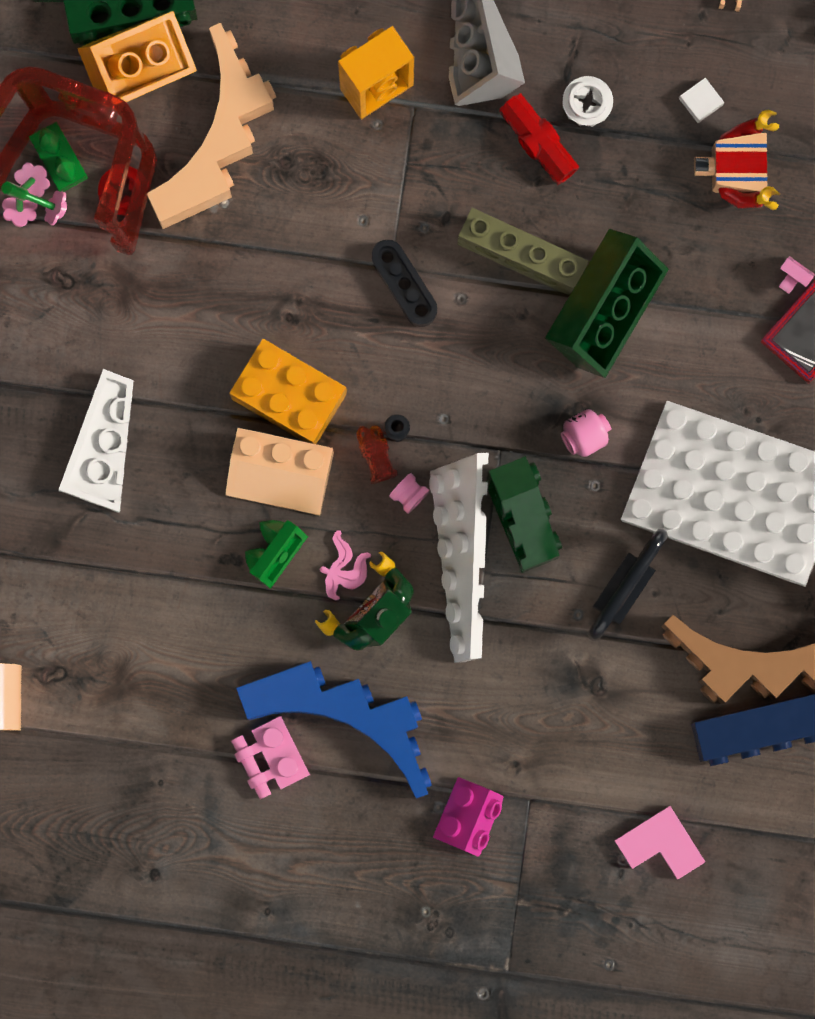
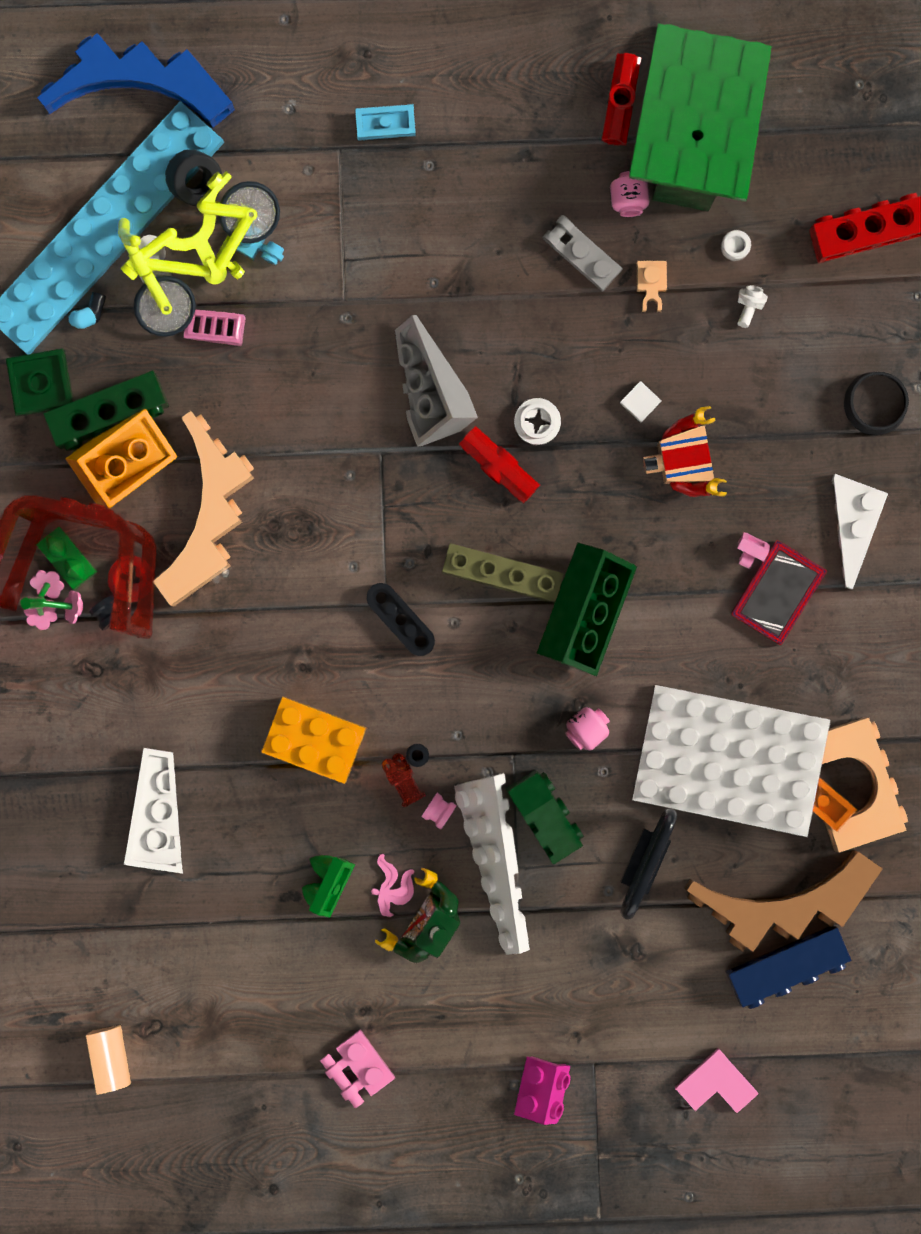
camera: 10 degrees left, 5 degrees up
(85, 218) = (103, 612): none -> black wheel
(279, 471) = (318, 812): light nougat slope -> none
(376, 71) = (340, 433): light orange brick -> none
(387, 725) = (418, 1010): blue arch -> none

